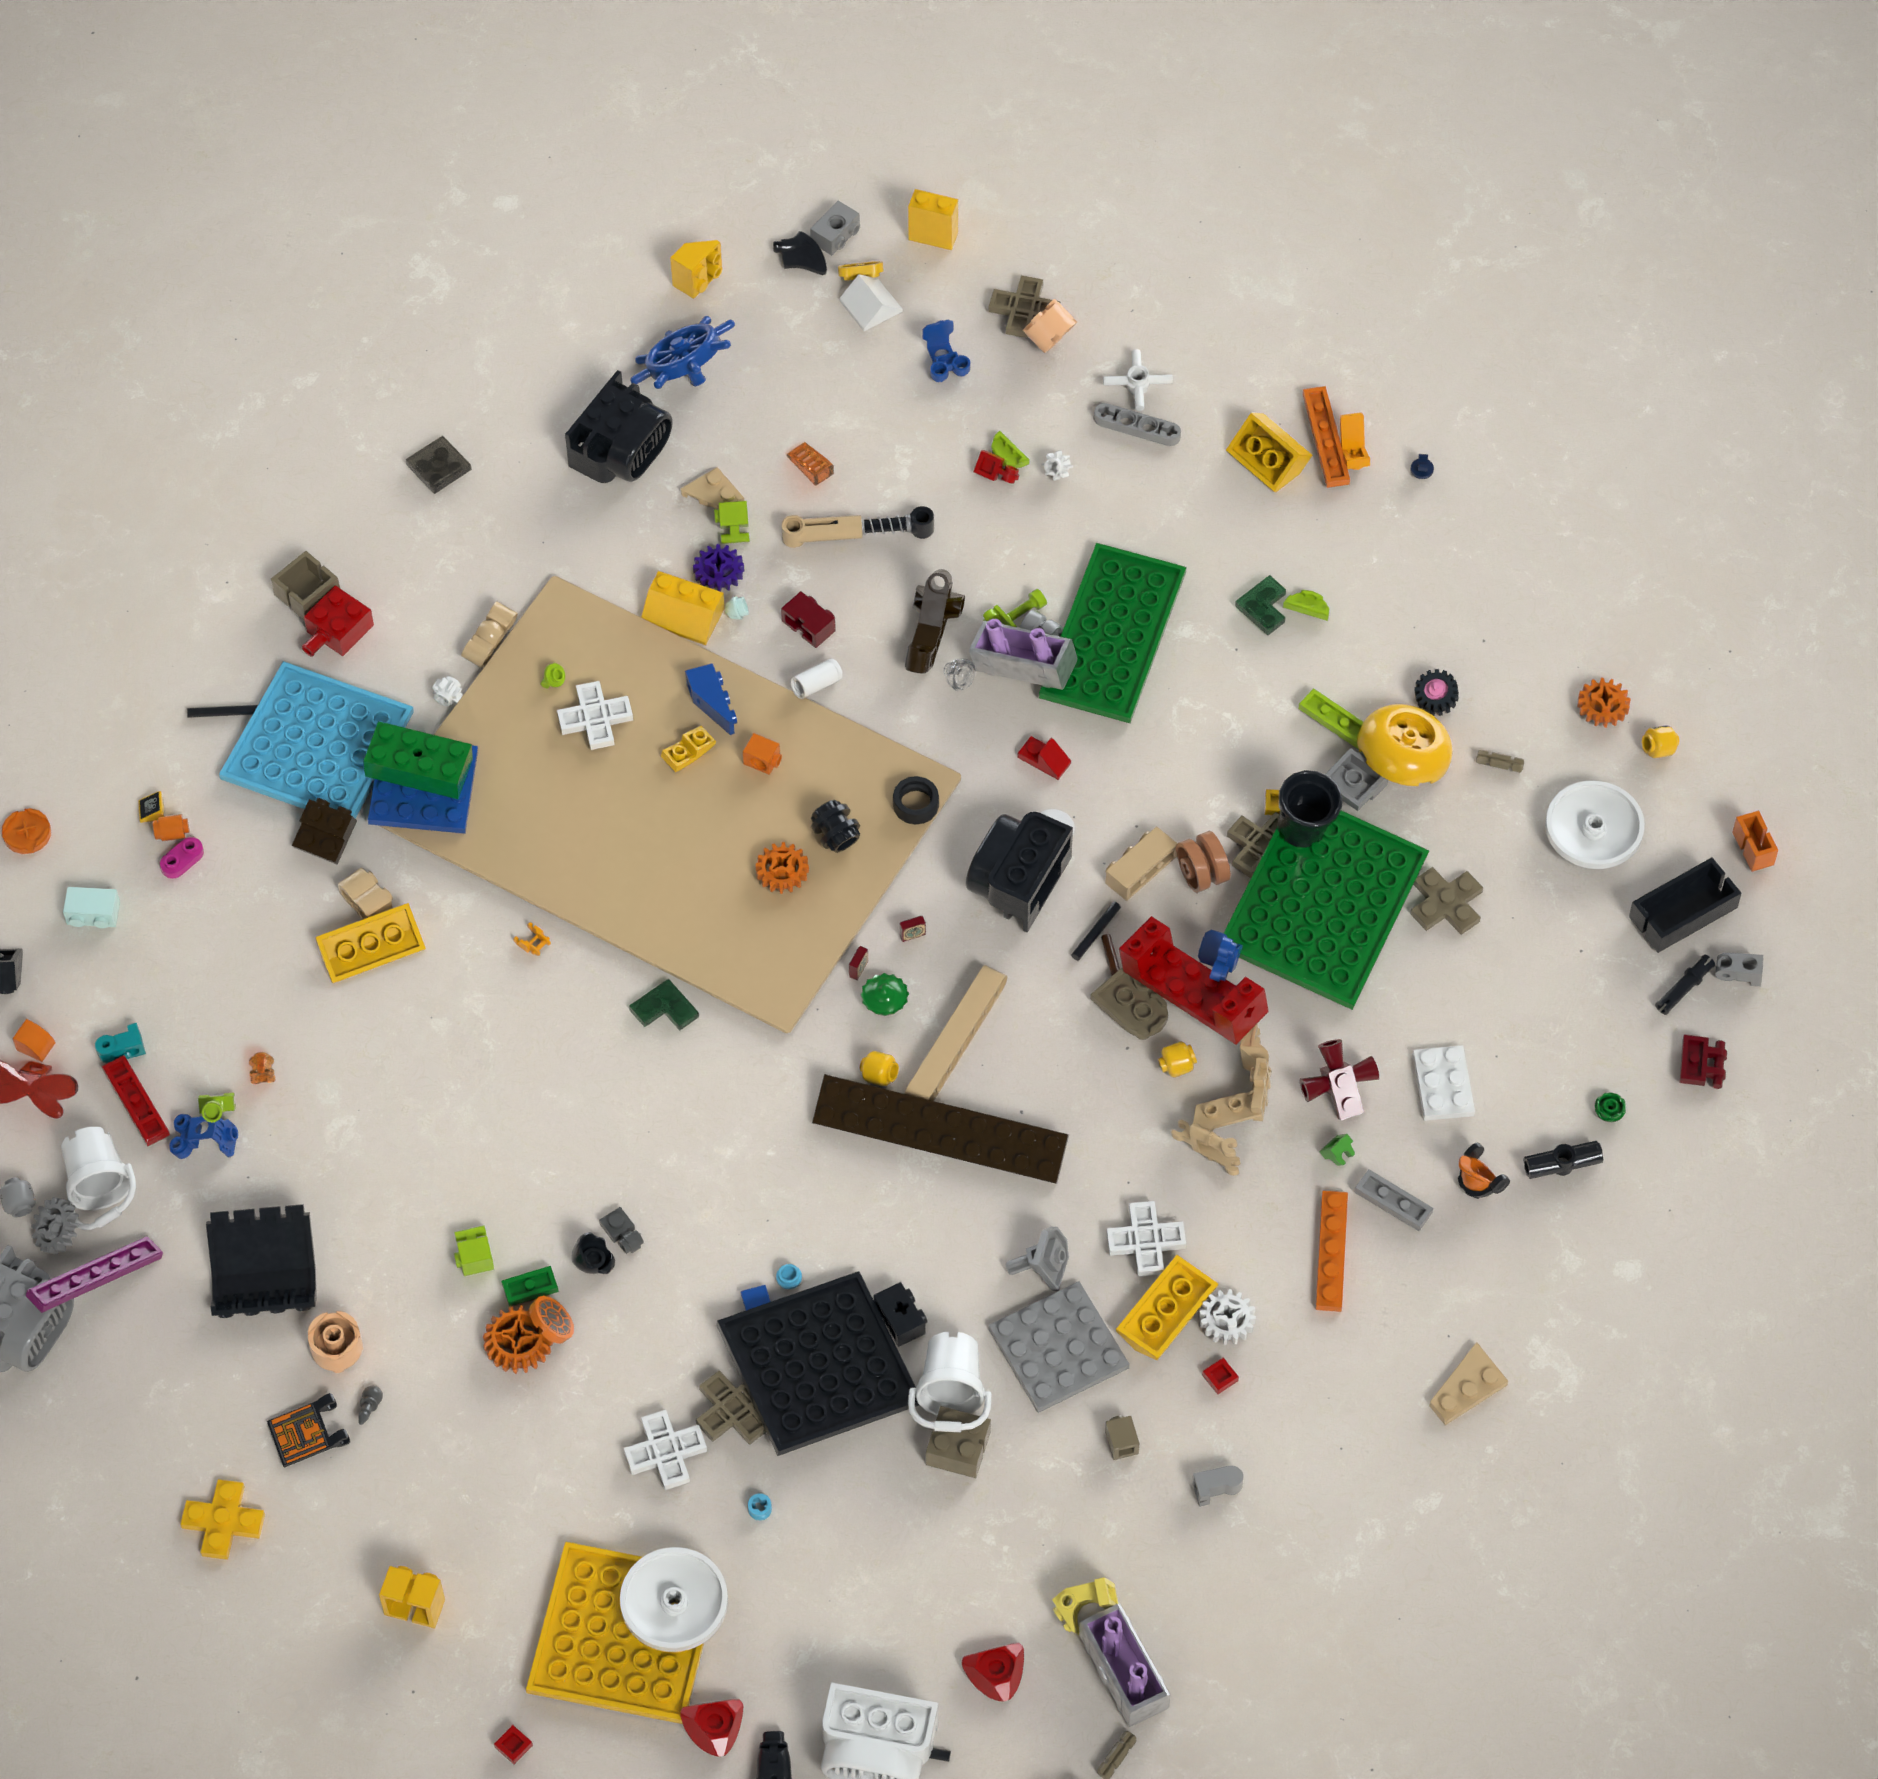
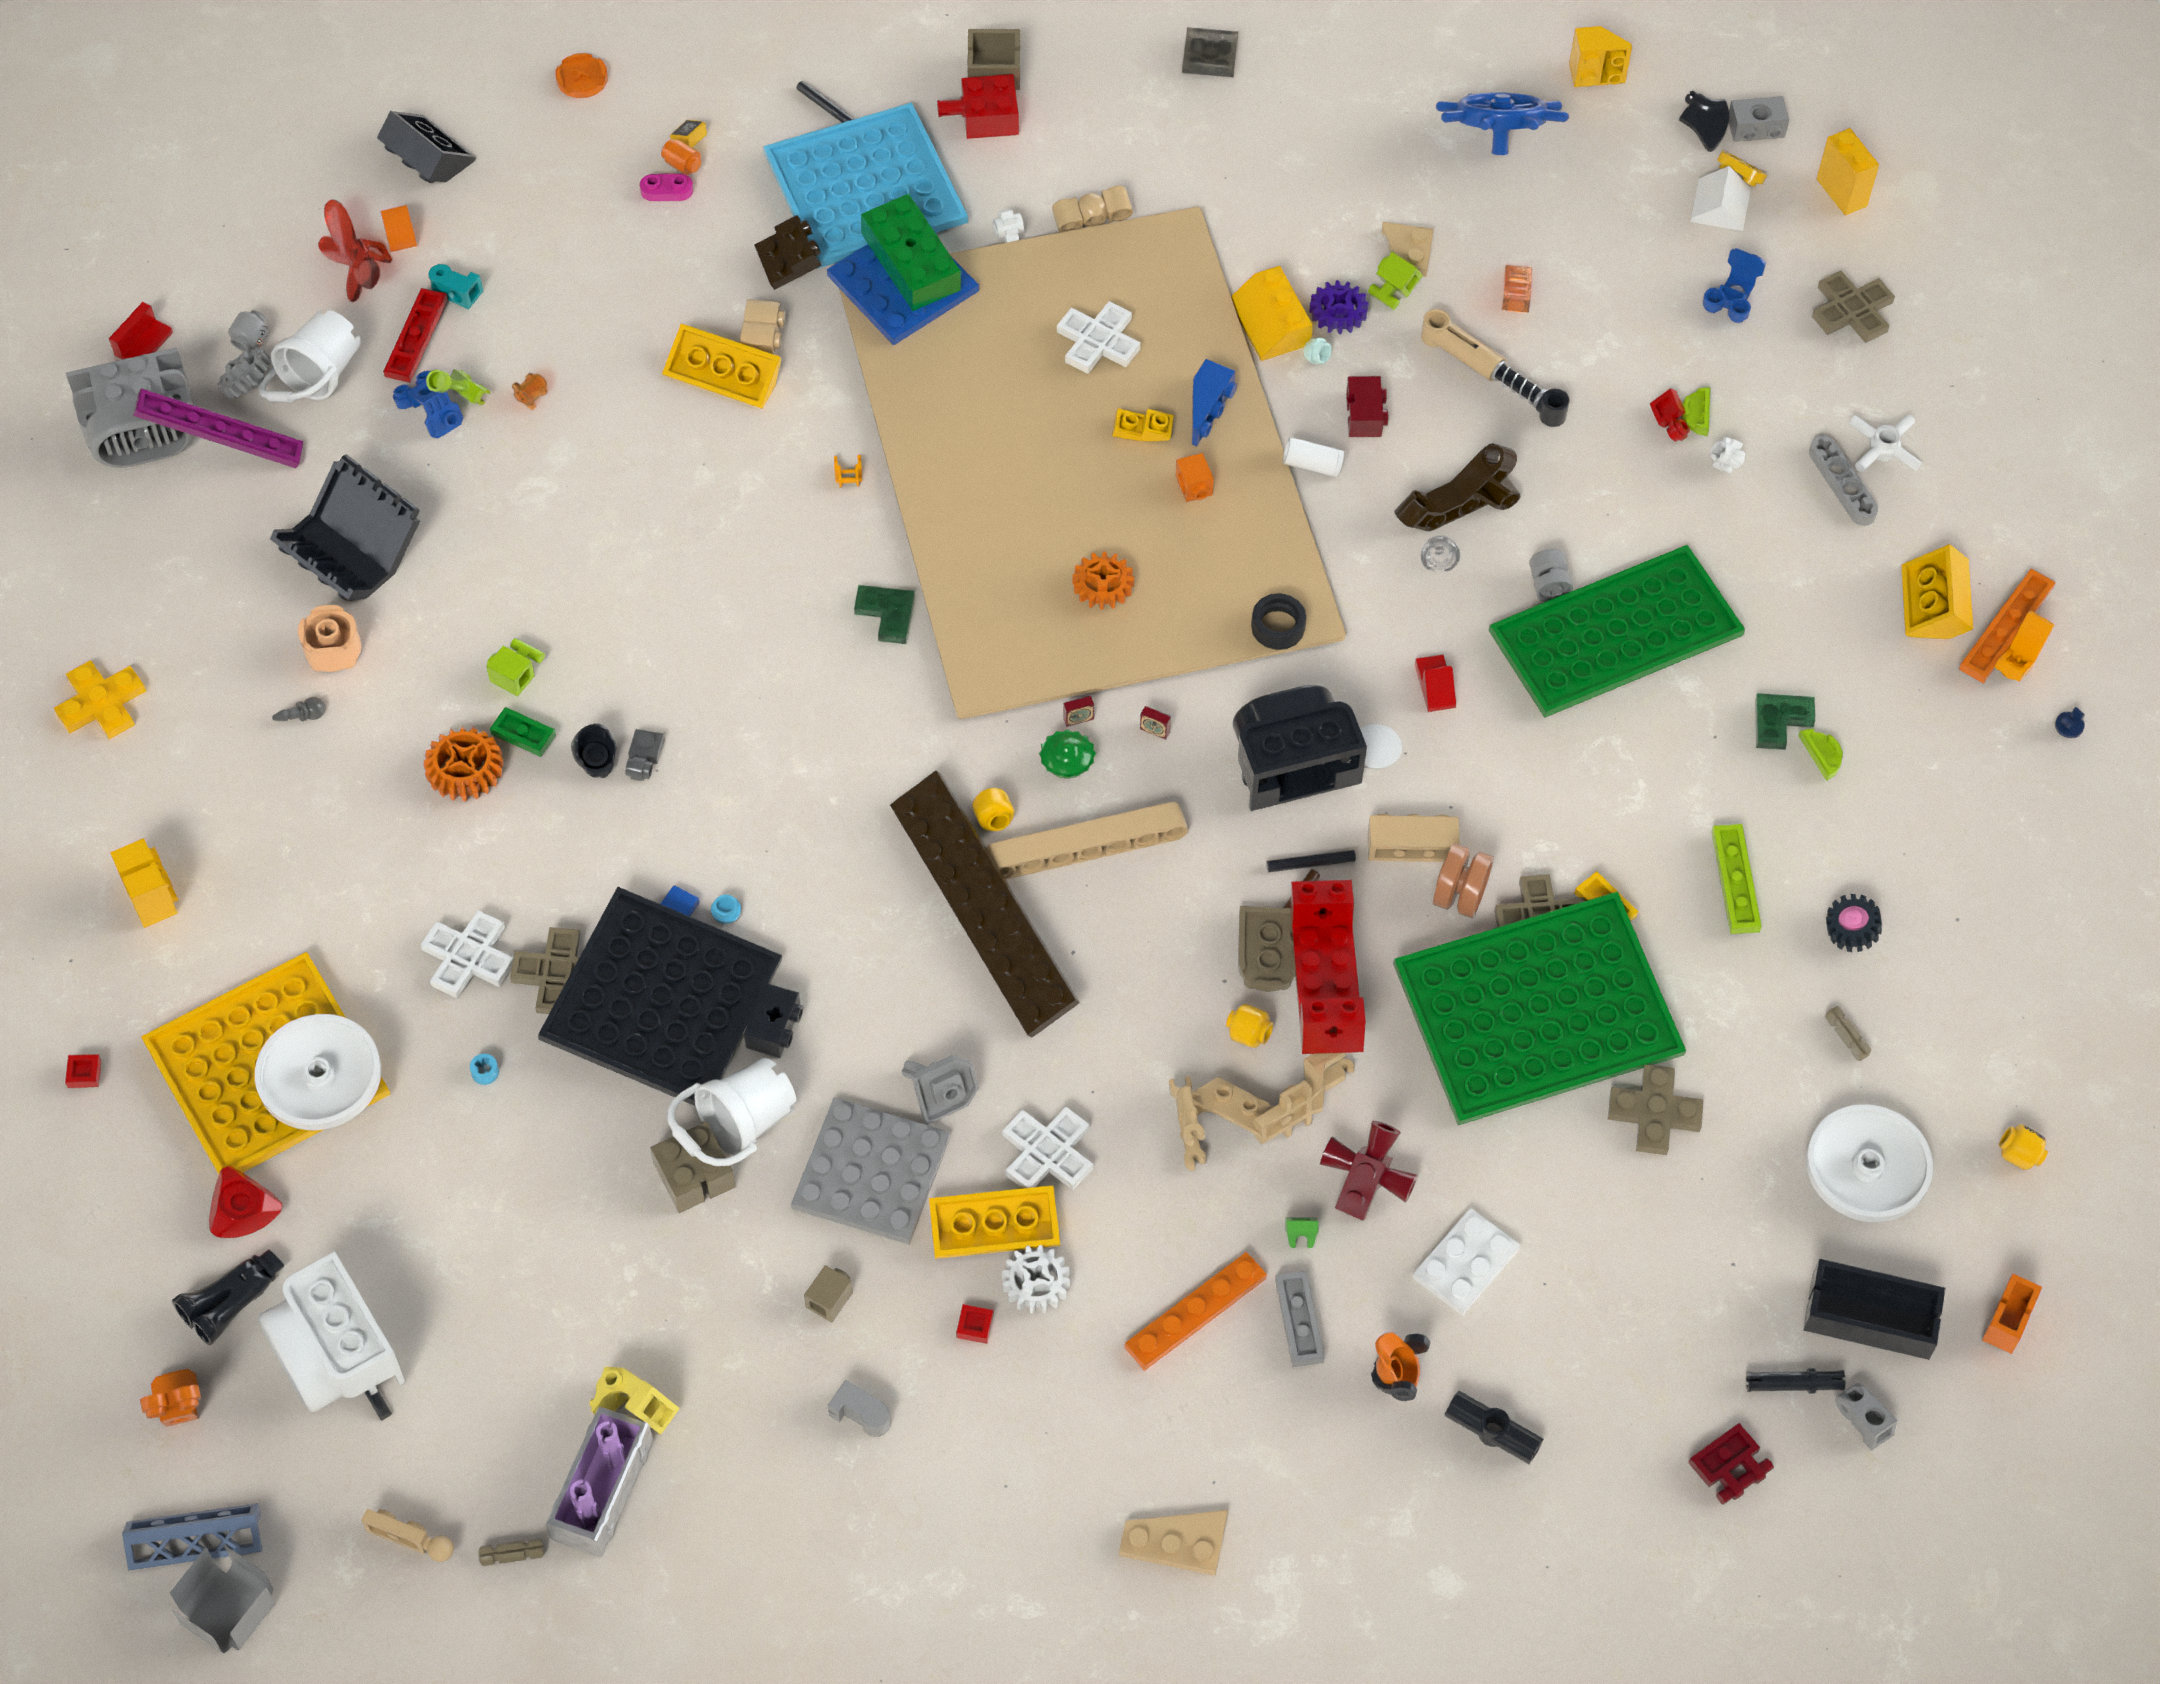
camera: 45 degrees right, 0 degrees up
(91, 907) = (555, 167): light aqua brick -> none
(303, 1432) = (231, 688): flag -> none
(552, 1319) = (501, 770): orange tile -> none
(553, 676) = (1102, 280): lime plate -> none
(619, 434) = (1375, 134): black brick -> none
(837, 828) = (1183, 583): black piece -> none
(996, 1670) = (502, 1383): red hat -> none
(1023, 654) = (1507, 579): piece -> none
(1036, 600) = (1526, 531): lime bar -> none
(1050, 326) = (1850, 334): light nougat brick -> none
(1220, 953) = (1380, 970): blue piece -> none
(1307, 807) = (1595, 906): black piece -> none
(1356, 779) = (1687, 931): light grey plate -> none
(1405, 745) = (1778, 958): yellow brick -> none
(1604, 702) = (2001, 1055): orange gear -> none
(1610, 1100) = (1597, 1414): green plate -> none

